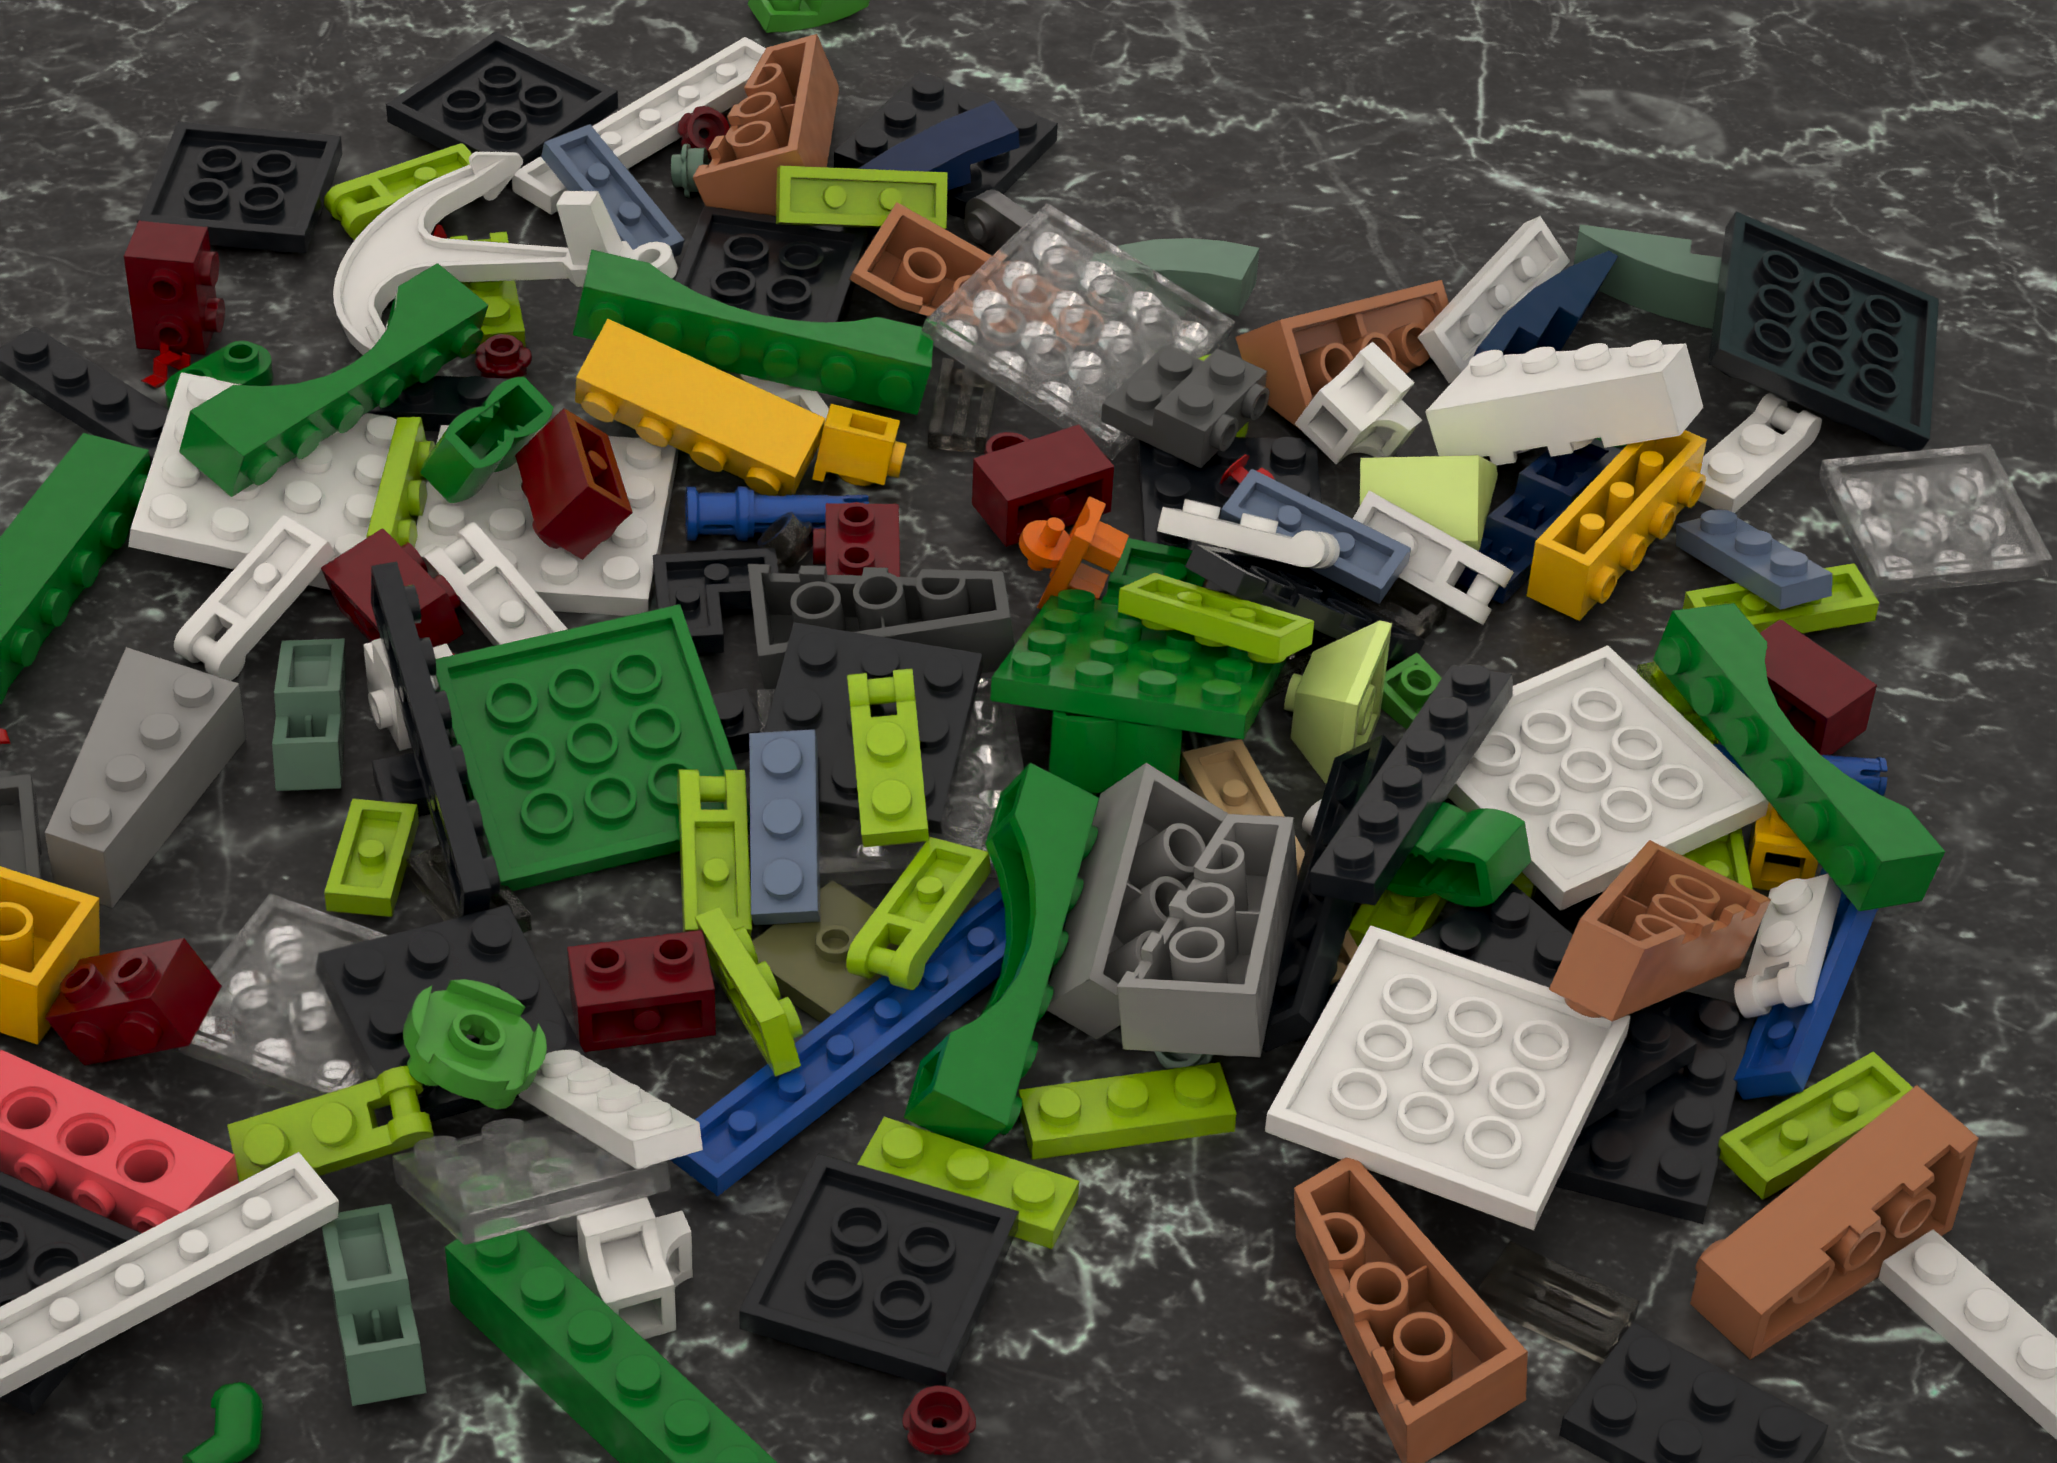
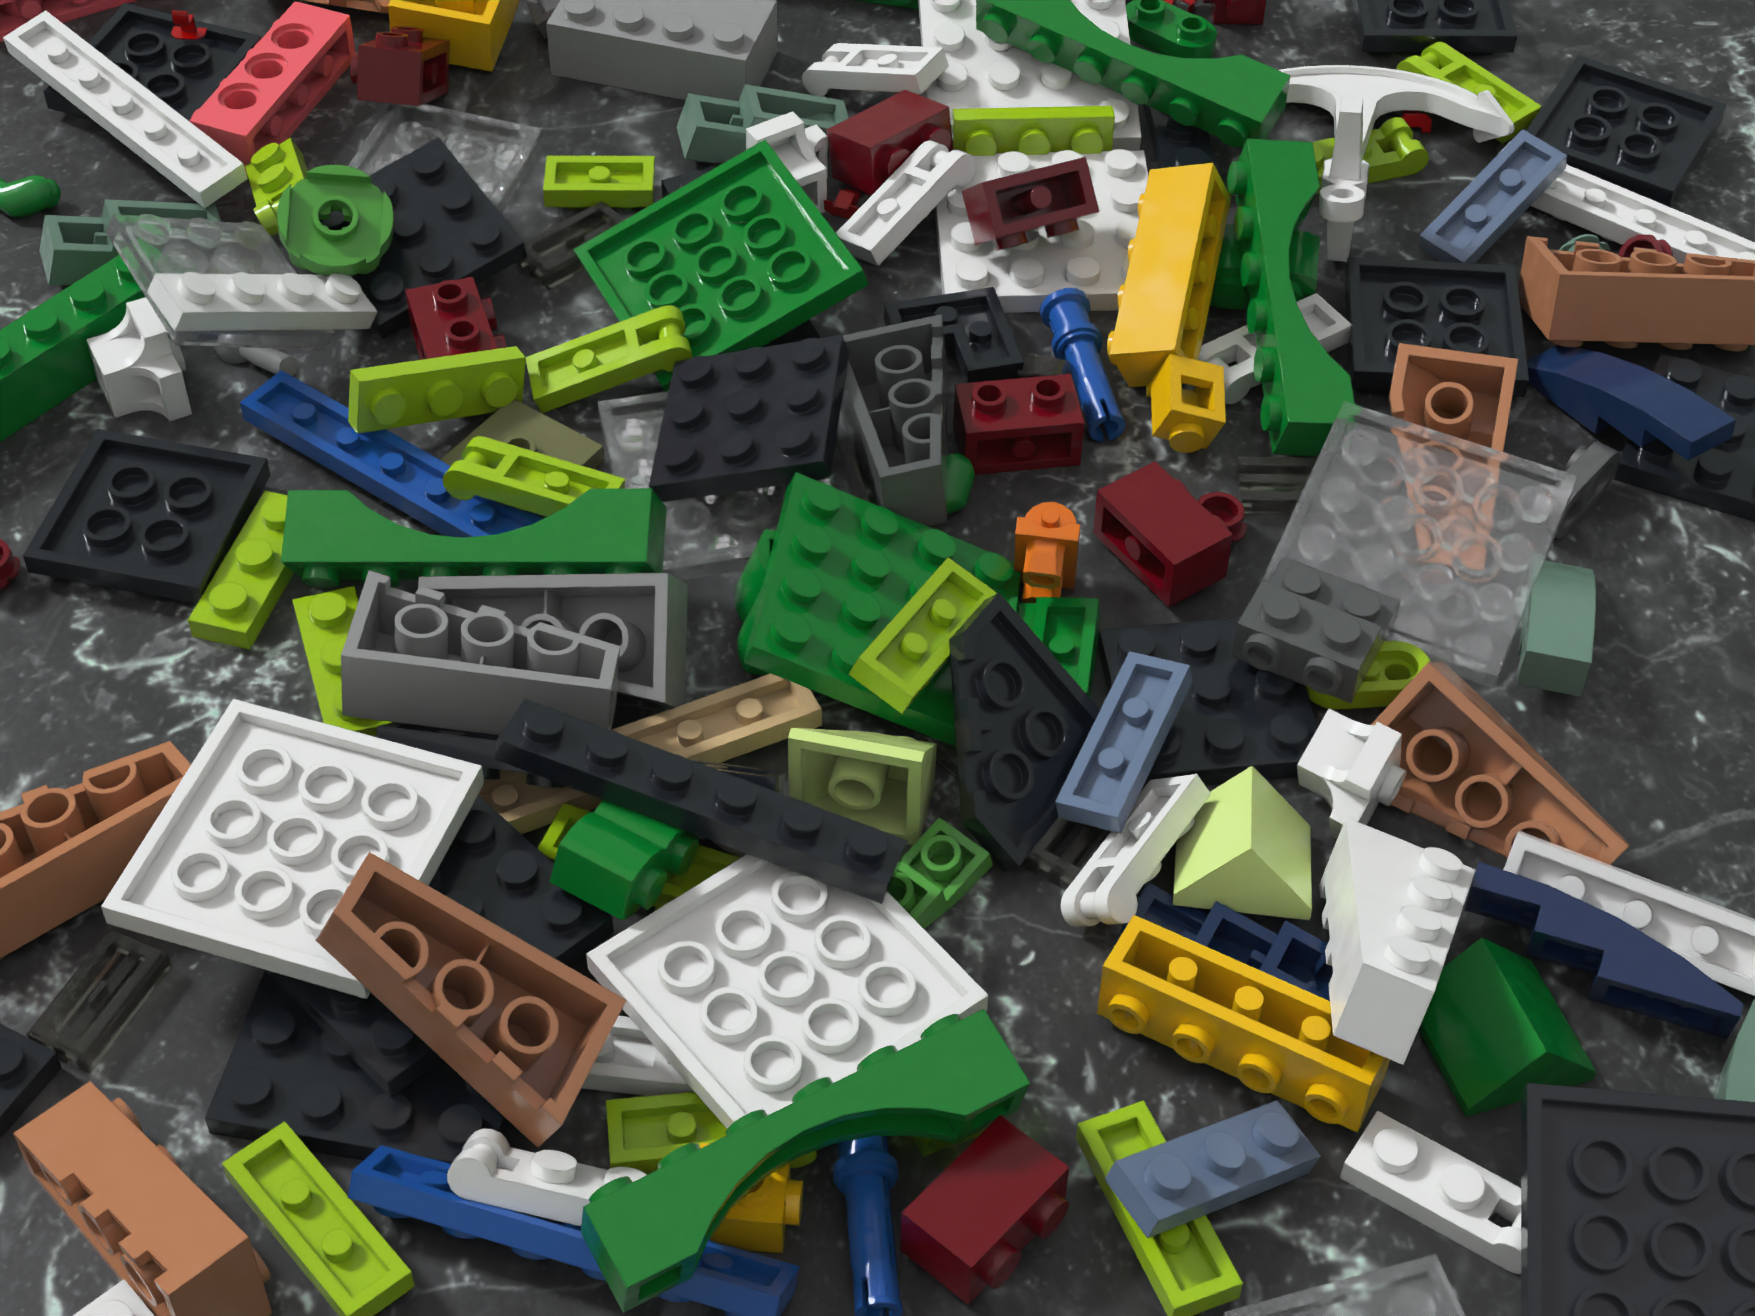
camera: 85 degrees right, 5 degrees up
(427, 718) = (668, 152): black plate -> none
(486, 439) = (1052, 133): green brick -> none
(784, 827) = (622, 382): sand blue plate -> none
(857, 196) = (1546, 353): lime plate -> none
(888, 760) = (689, 420): lime plate -> none
(1238, 473) = (1223, 688): red piece -> none
(1252, 536) = (1080, 670): white plate -> none

